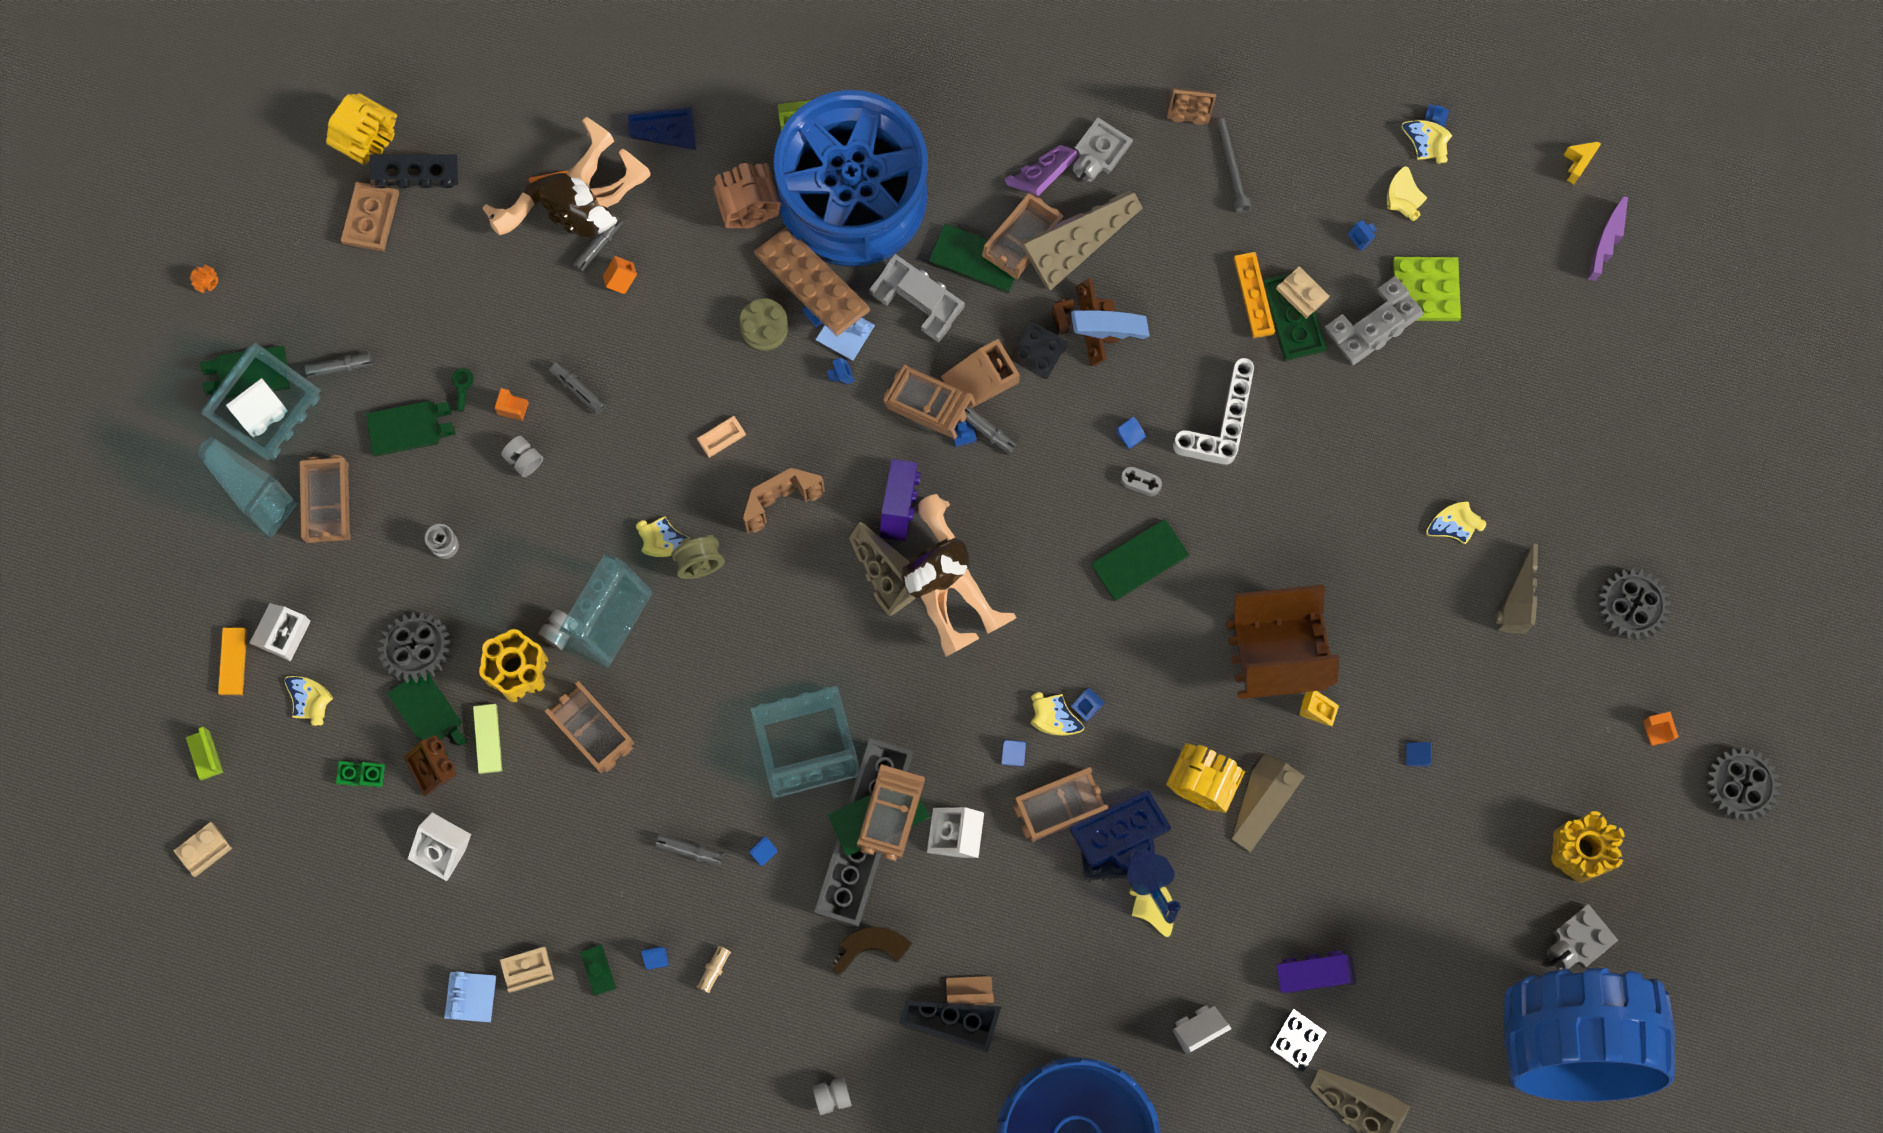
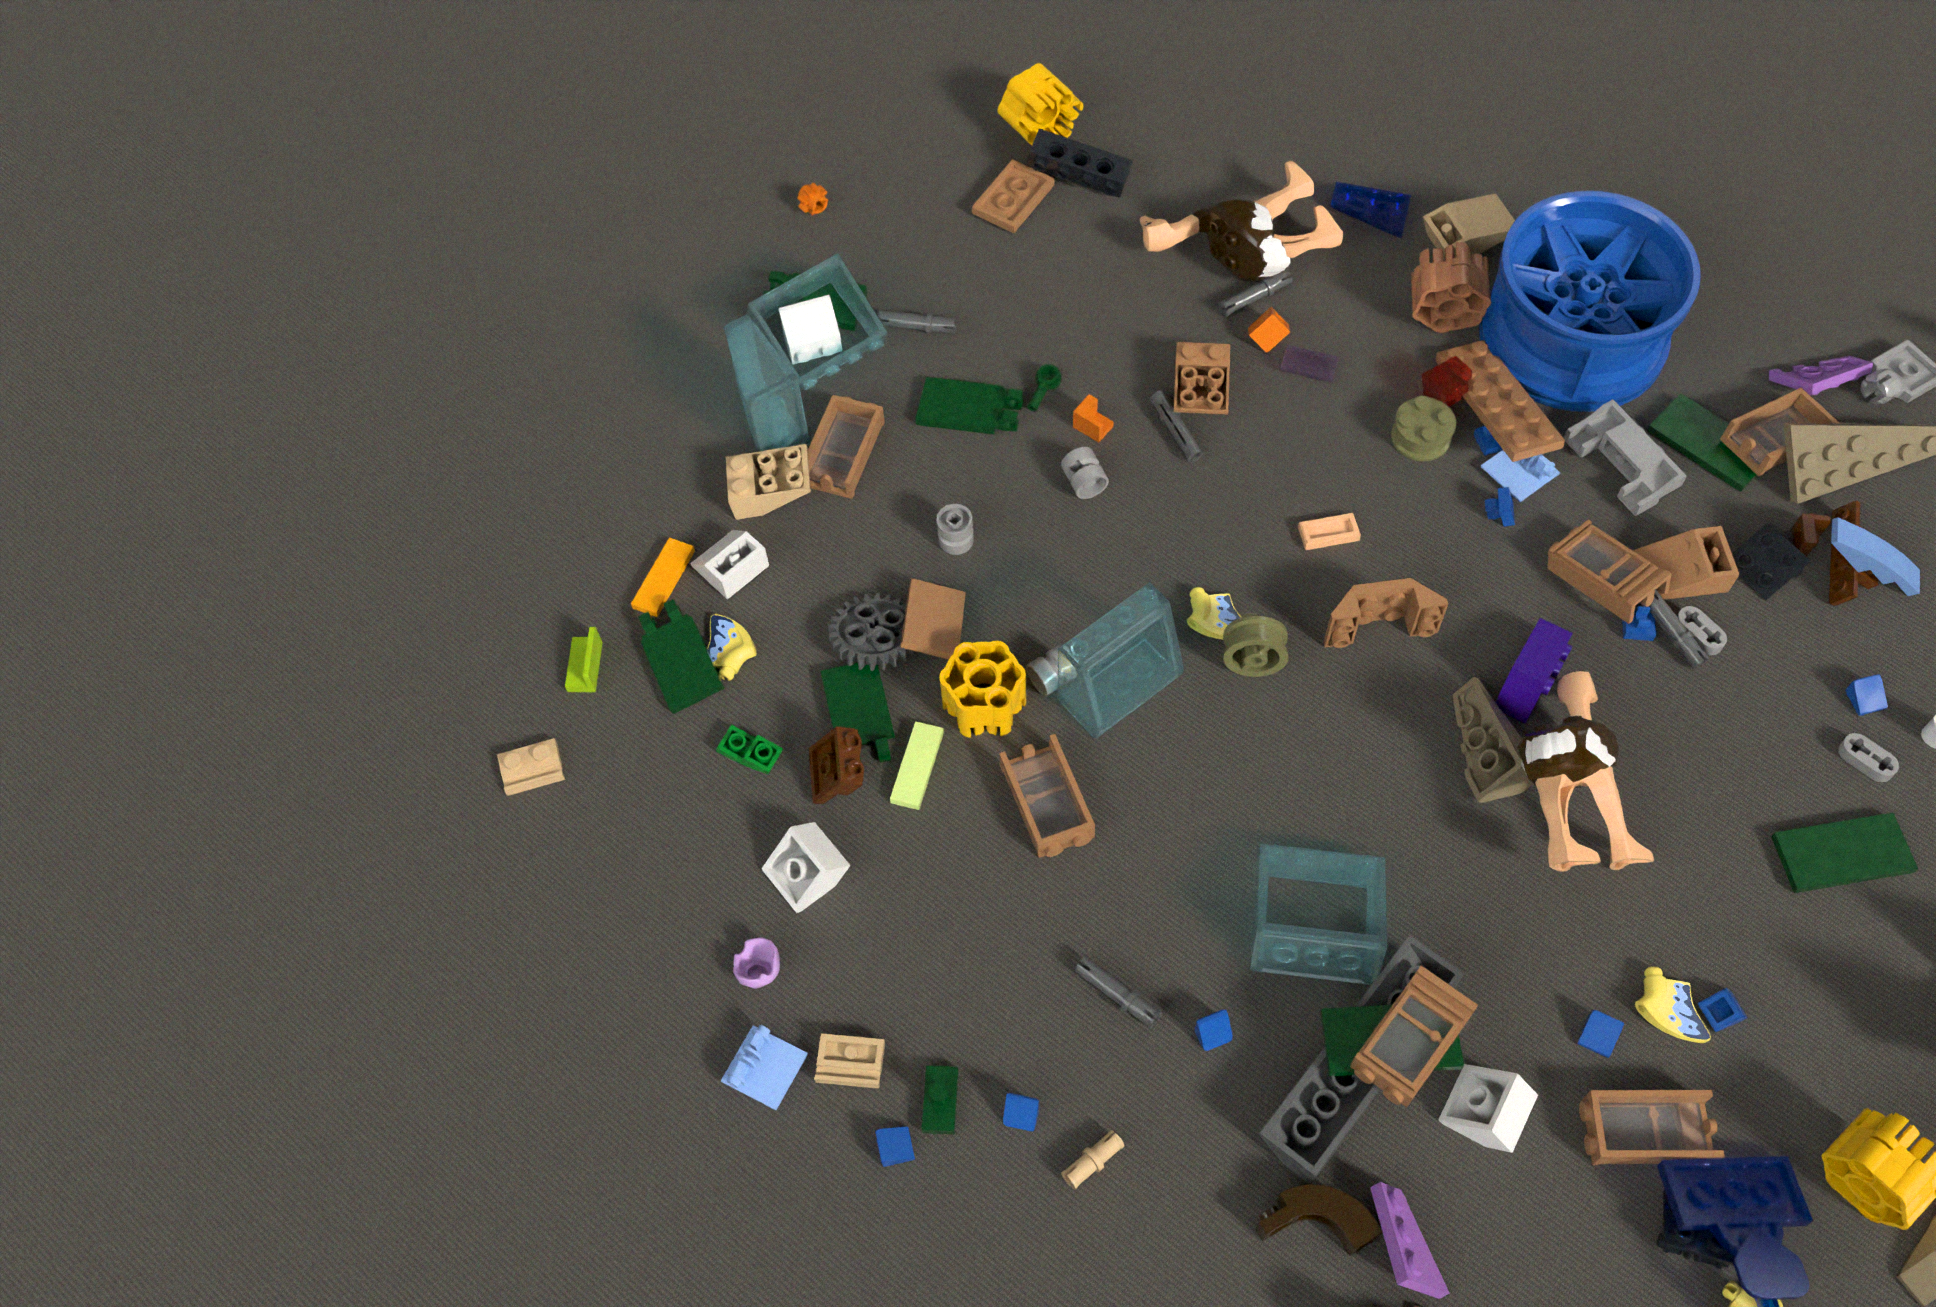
camera: 30 degrees right, 15 degrees down
(276, 723) = (679, 659): none -> dark green tile
(279, 553) = (766, 480): none -> tan slope
(434, 929) = (757, 963): none -> lavender hair
(454, 622) = (932, 619): none -> medium nougat tile
(580, 1013) = (894, 1145): none -> blue slope
(583, 343) = (1201, 378): none -> medium nougat slope
(660, 294) = (1309, 363): none -> clear purple plate
(746, 127) = (1474, 221): none -> tan slope
(769, 279) = (1447, 381): none -> clear red brick
(929, 944) = (1406, 1246): none -> medium lavender wing
(1008, 417) = (1703, 629): none -> light grey beam

